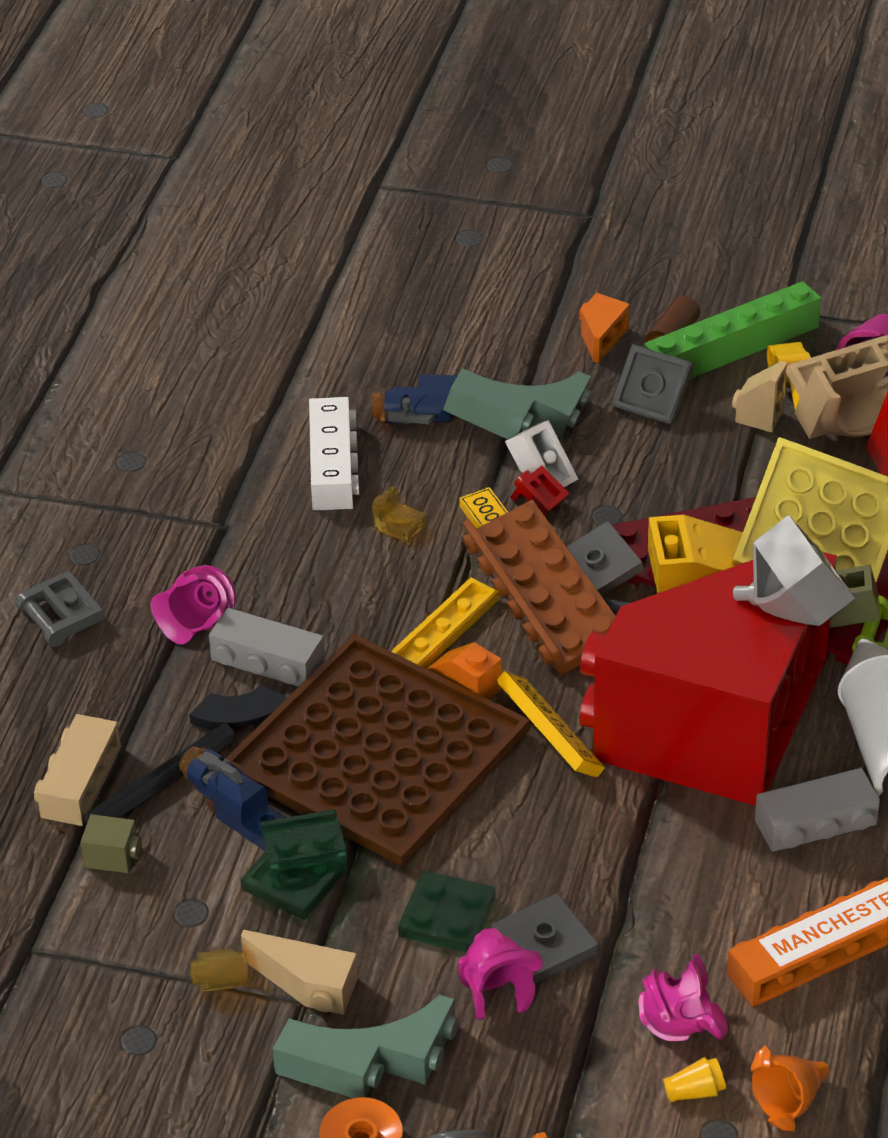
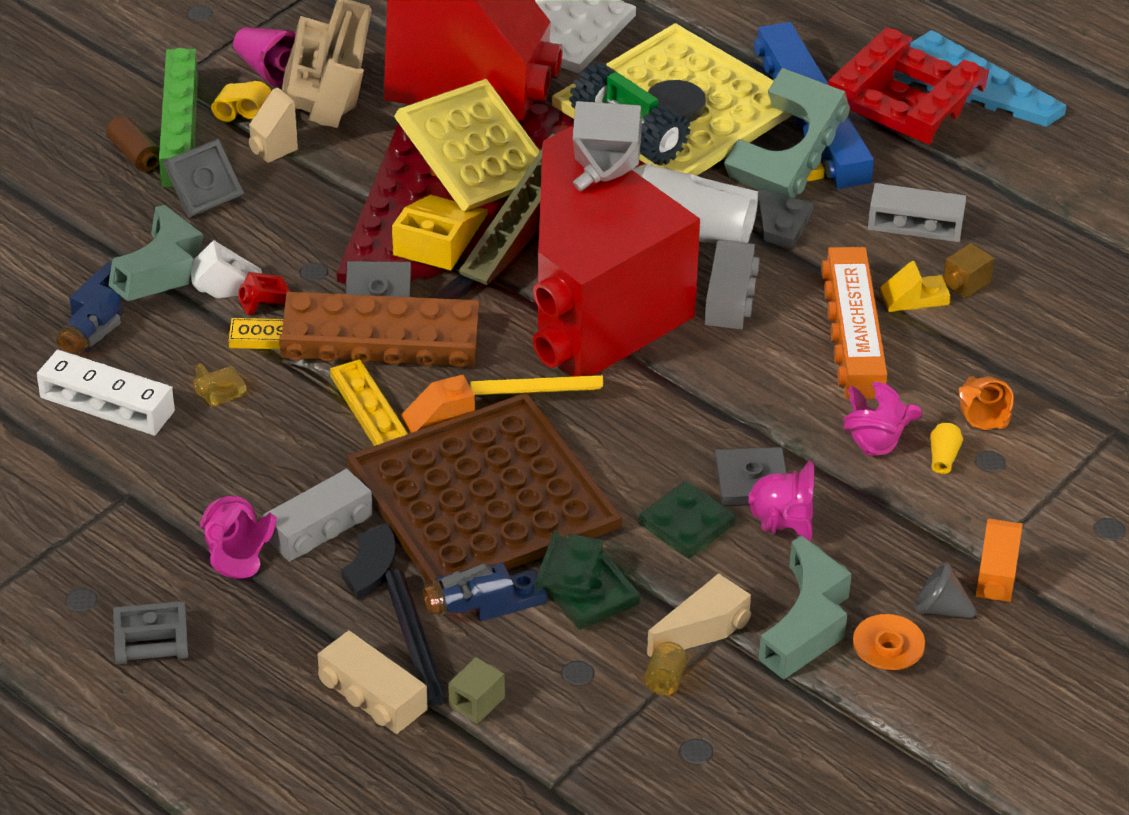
camera: 65 degrees left, 0 degrees up
(603, 324) = (94, 180): orange slope -> none

